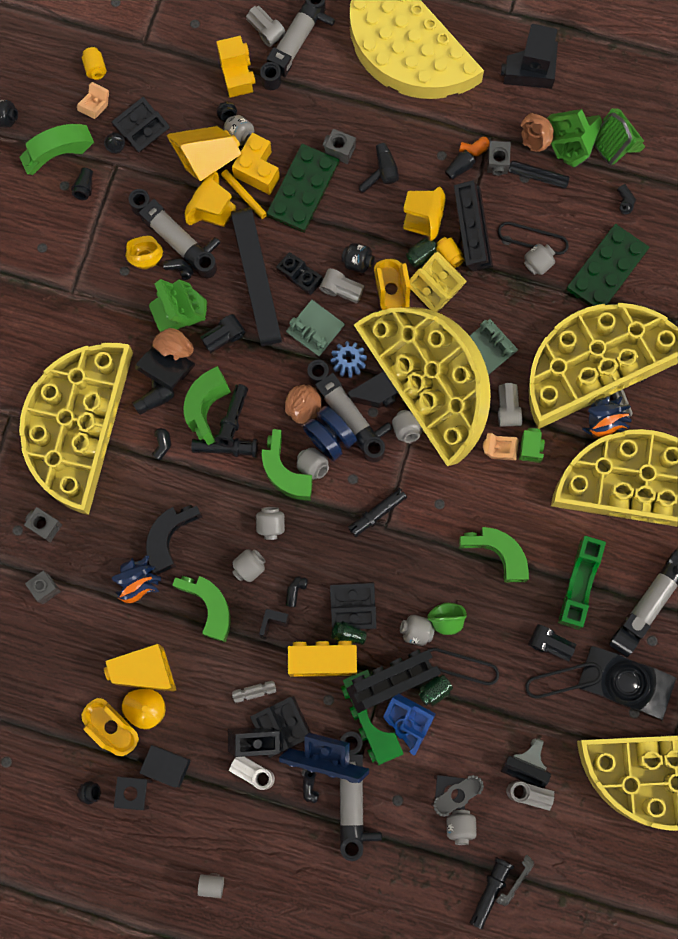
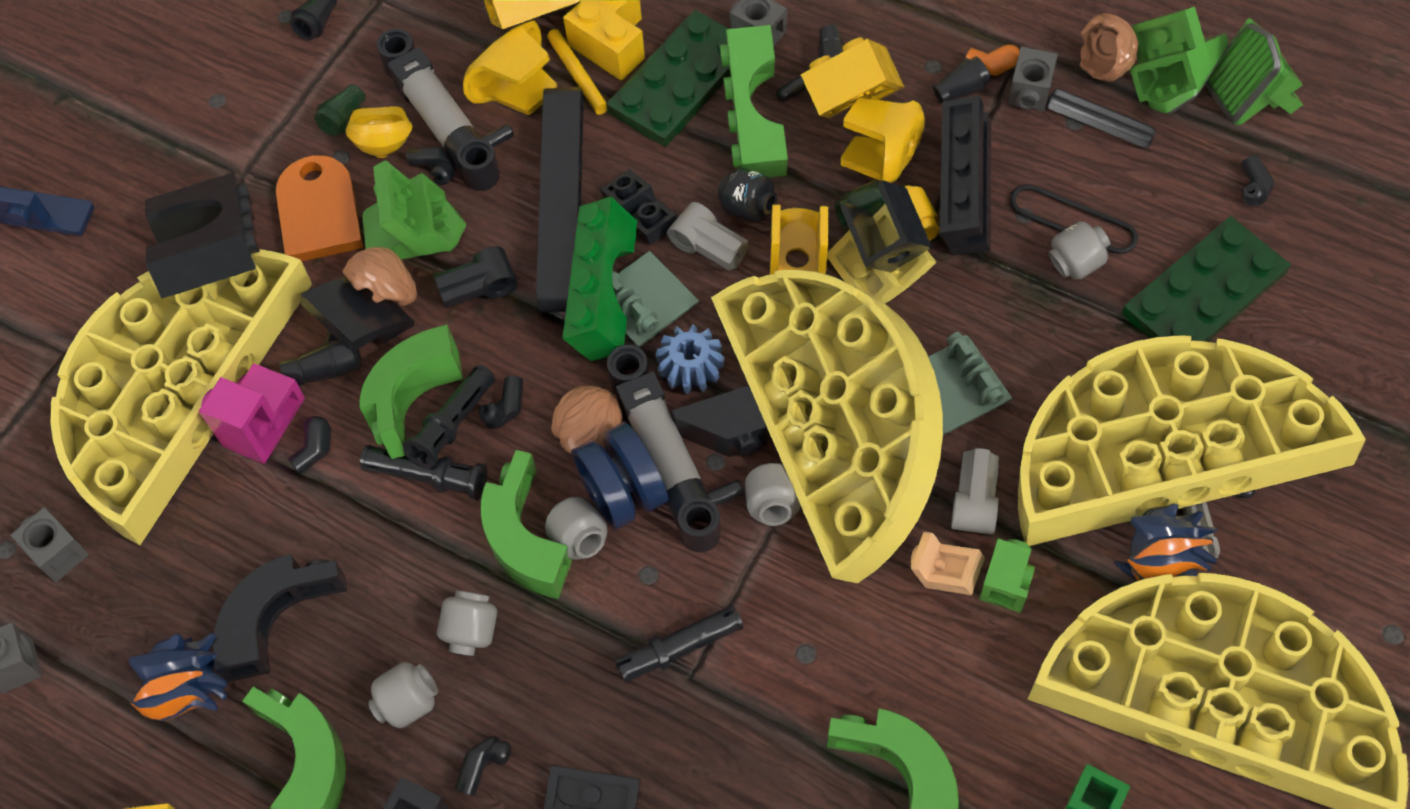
camera: 15 degrees right, 15 degrees down
(84, 352) = (201, 235): none -> black arch
(117, 244) = (335, 112): none -> clear green cone
(122, 308) = (318, 214): none -> orange tile
(127, 432) = (252, 412): none -> dark pink brick
(258, 404) = (507, 408): none -> black arm
(293, 345) = (593, 315): none -> green arch
(342, 174) = (750, 63): none -> bright green arch
(401, 180) = (857, 72): none -> yellow brick
(447, 263) = (906, 221): none -> black piece

